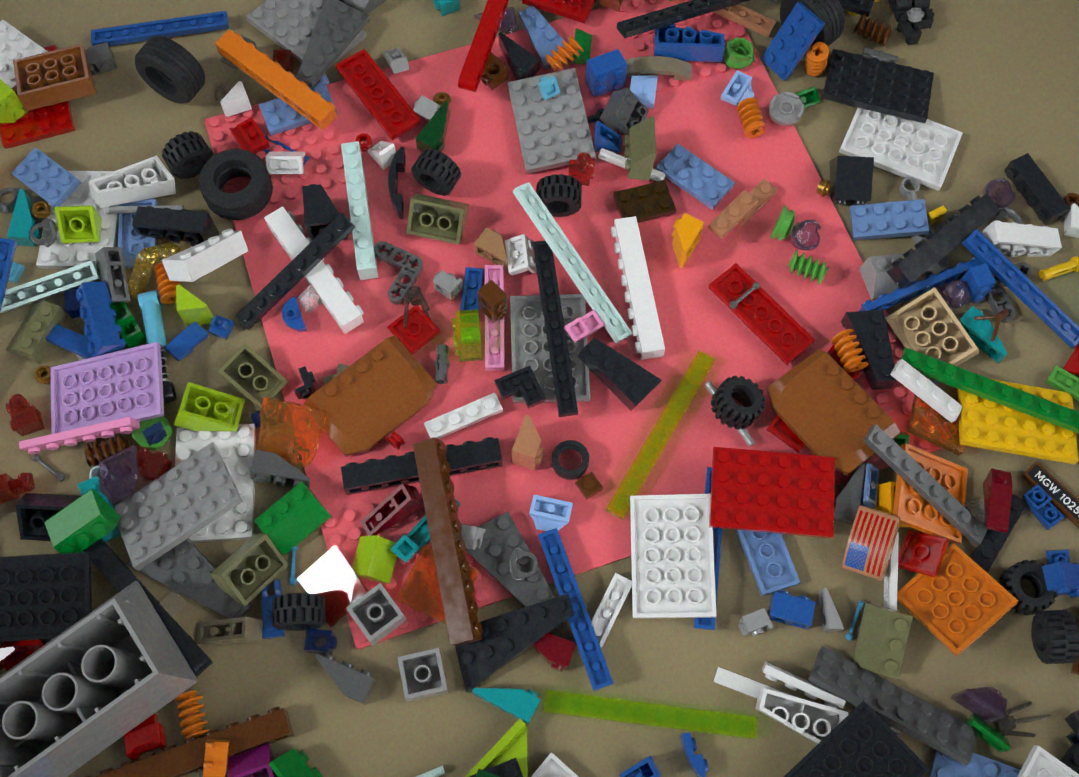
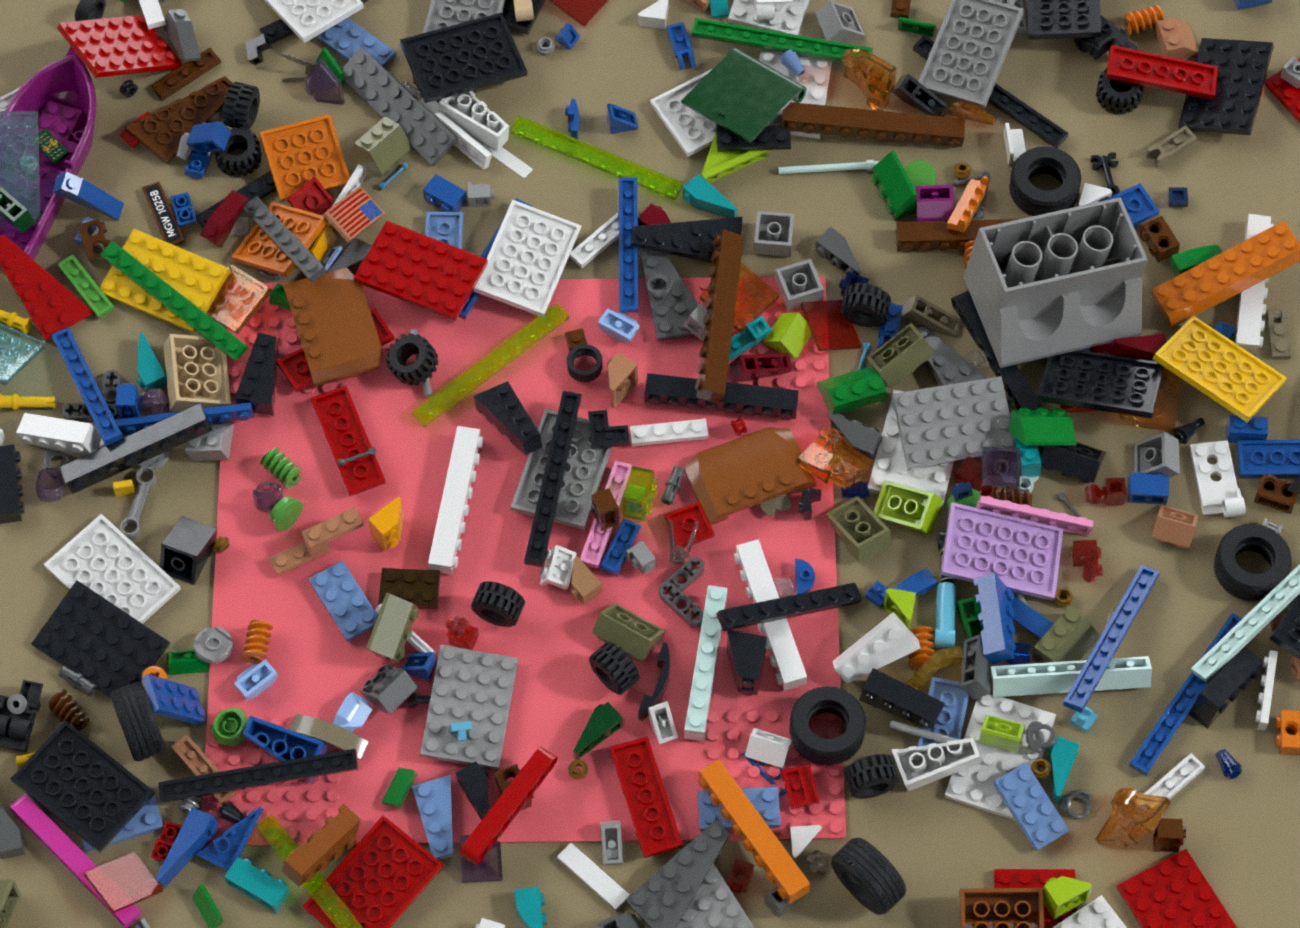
camera: 160 degrees left, 5 degrees down
(364, 137) = (678, 752): red bush -> none
(403, 35) = (593, 876): none -> white tile
(425, 107) = (597, 755): light grey brick -> none
(564, 53) = (426, 766): orange piece -> none
(572, 262) = (512, 532): light aqua plate -> none
(584, 326) = (529, 469): bright pink slope -> none
(606, 73) = (389, 732): blue brick -> none
(830, 618) = (415, 180): light grey slope -> none
(848, 352) = (287, 368): orange piece -> none
(889, 219) = (171, 496): medium blue plate -> none
(926, 390) = (236, 317): white plate -> none
(998, 317) = (128, 365): reddish brown plant -> none

